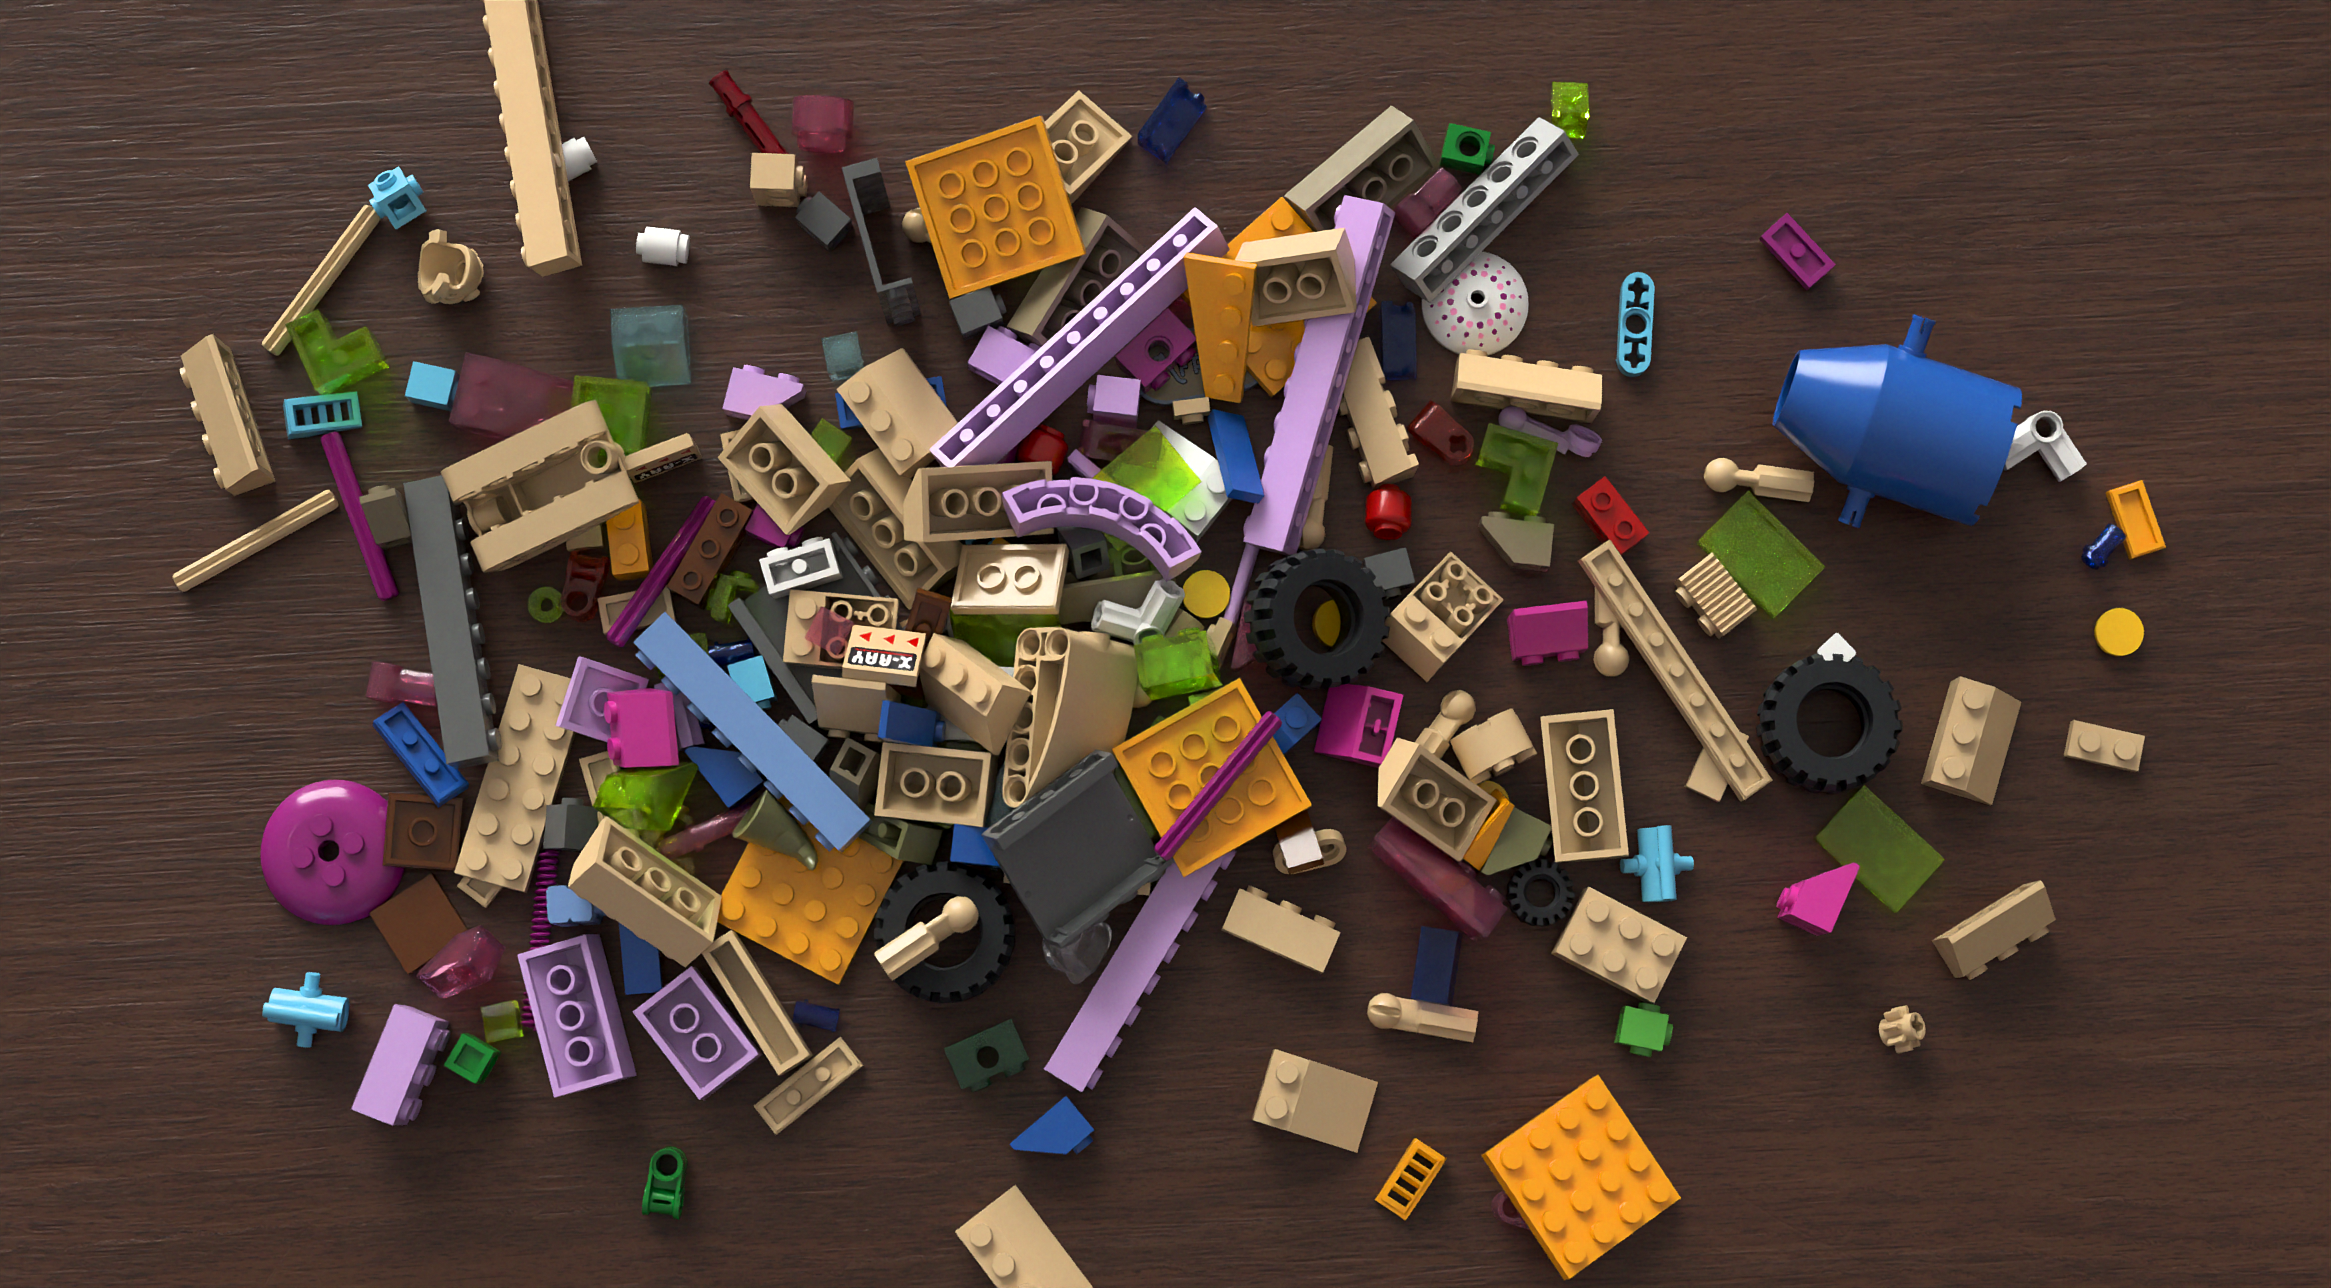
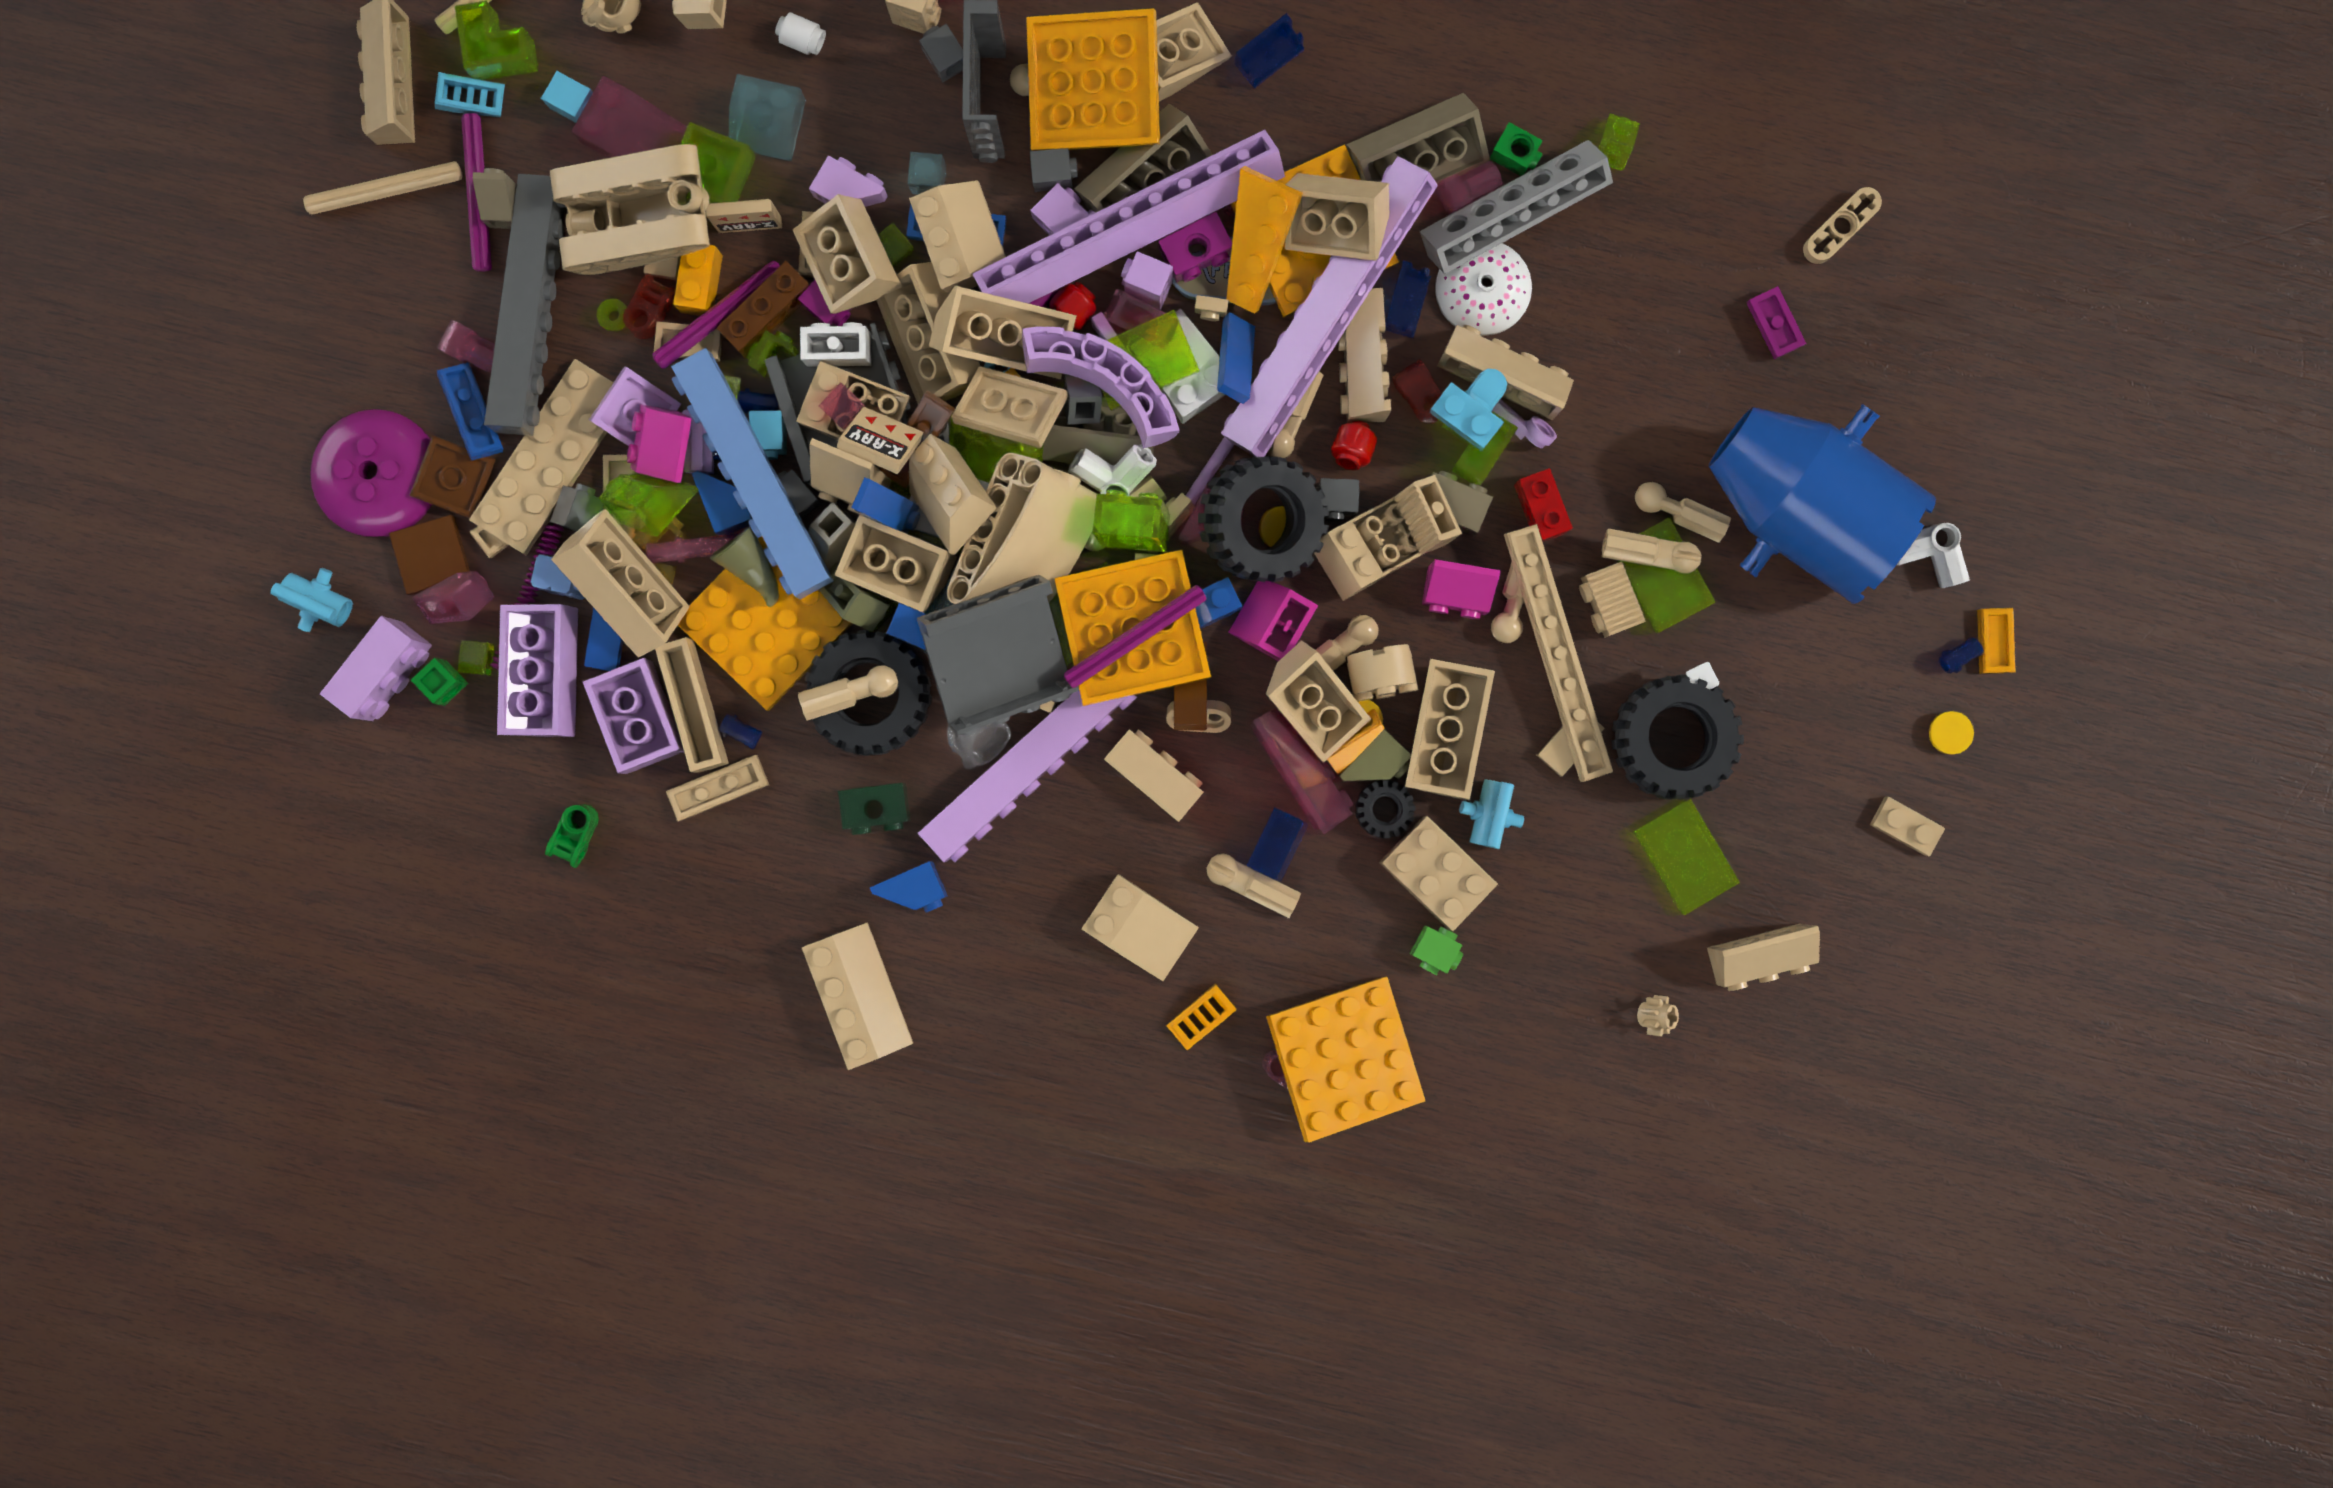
camera: 20 degrees right, 5 degrees up
(1206, 594) = (1176, 470): yellow piece -> none
(1490, 563) = (1428, 514): none -> tan brick
(1504, 440) = (1470, 411): none -> medium azure brick
(1627, 297) = (1616, 321): medium azure beam -> none
(1739, 532) = (1650, 551): none -> tan piece
(1817, 900) = (1620, 885): dark pink slope -> none
(1855, 112) = (1852, 203): none -> tan beam
(1971, 740) = (1794, 788): tan slope -> none

